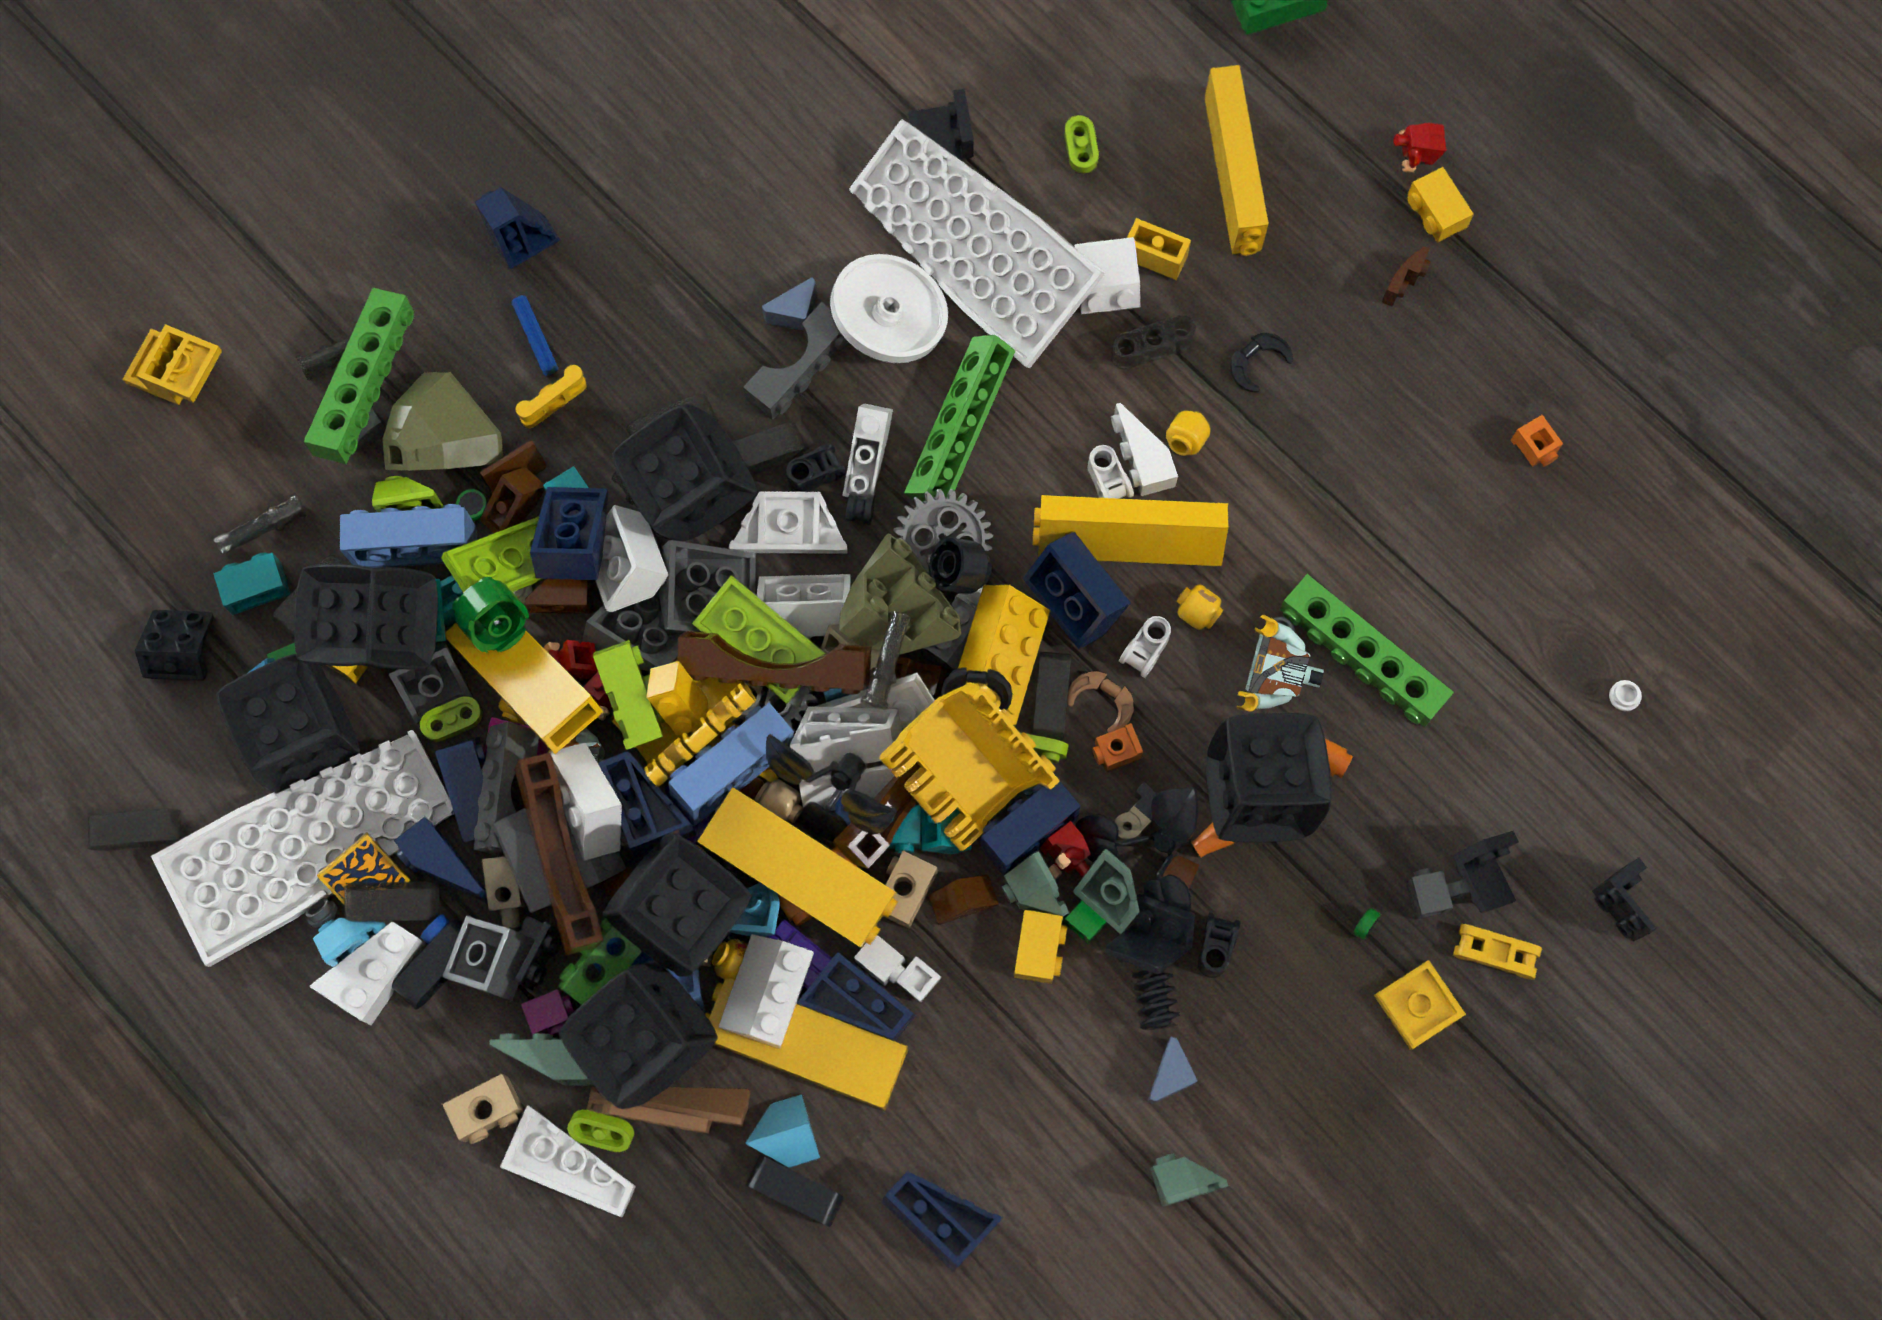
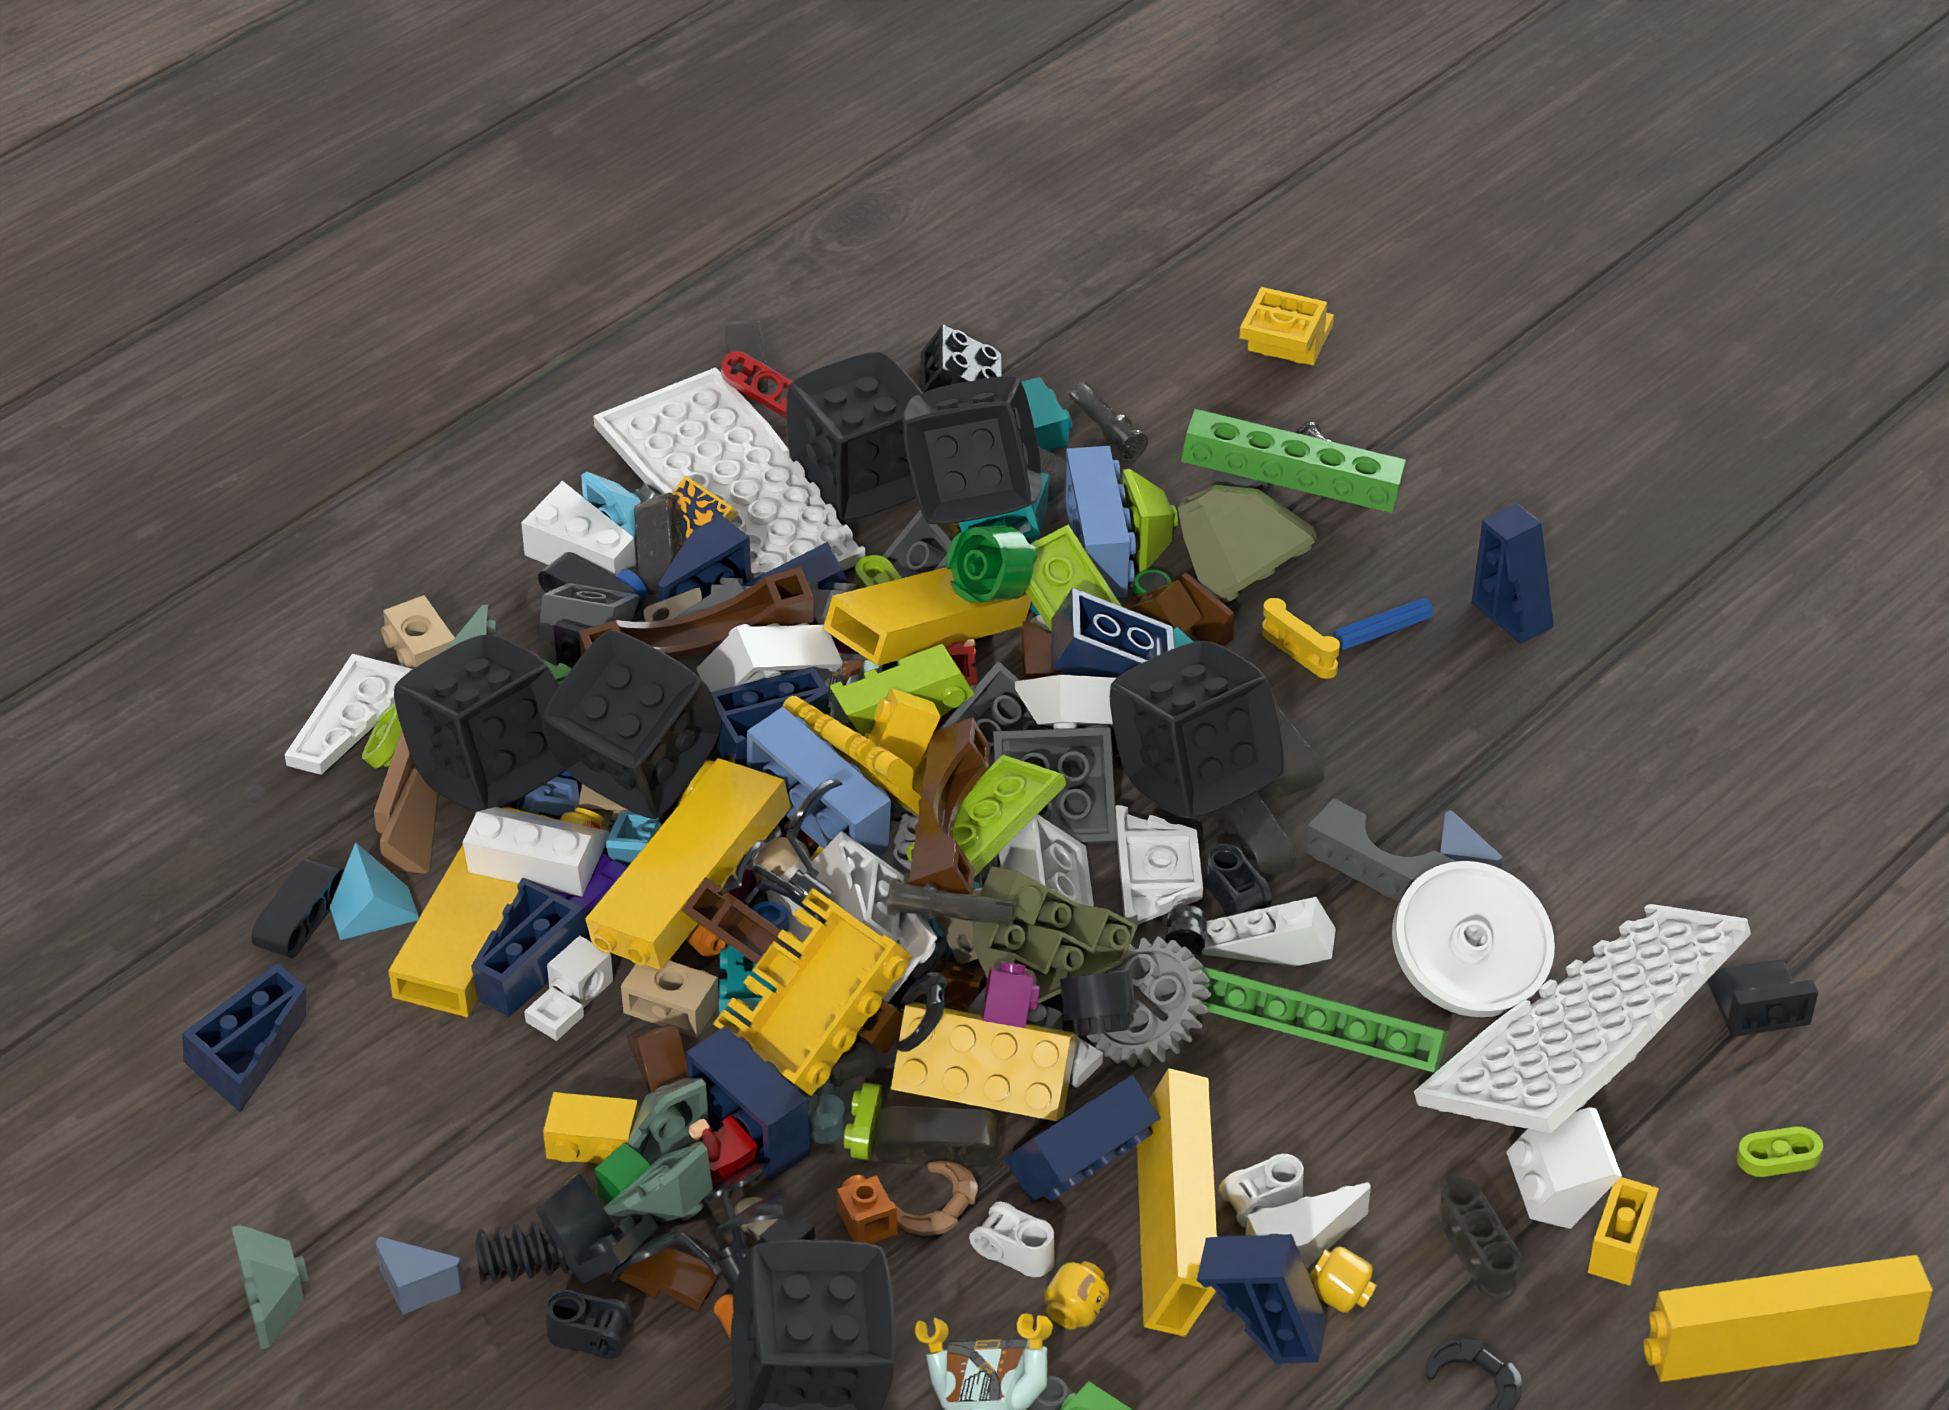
camera: 85 degrees right, 30 degrees down
(196, 786) = (763, 372): none -> red beam
(974, 625) = (1009, 995): none -> magenta brick
(1227, 477) = (1269, 1291): none -> dark blue wedge

